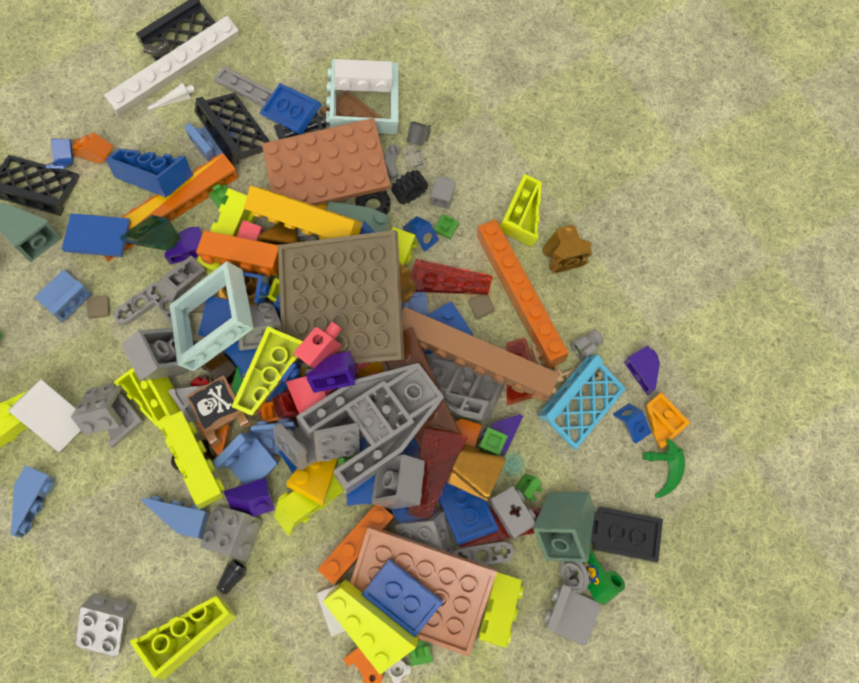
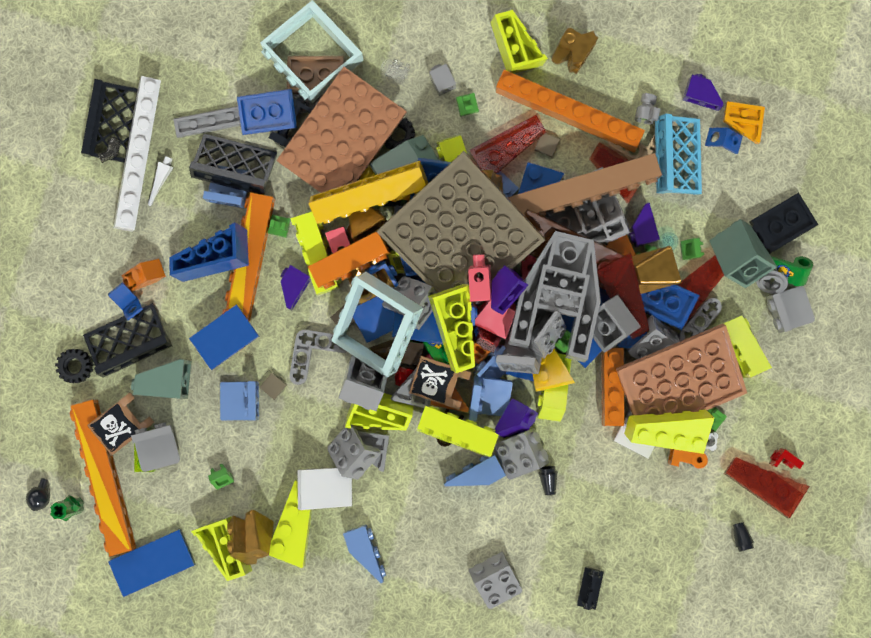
camera: 35 degrees left, 15 degrees up
(153, 233) = (267, 302): clear green slope -> none
(175, 642) = (555, 543): neon yellow wedge -> none
(181, 278) = (318, 314): light grey brick -> none
(362, 75) = (301, 37): white brick -> none
(390, 157) = (374, 80): light grey arm -> none
(402, 597) = (676, 394): tile -> none
(409, 187) = (415, 97): black tyre -> none
(418, 133) = (381, 48): dark grey piece -> none
(419, 228) = (451, 124): blue bracket -> none
(493, 441) = (648, 240): bright green tile -> none
(502, 506) = (707, 284): light grey brick -> none
(676, 462) = (777, 144): green piece -> none

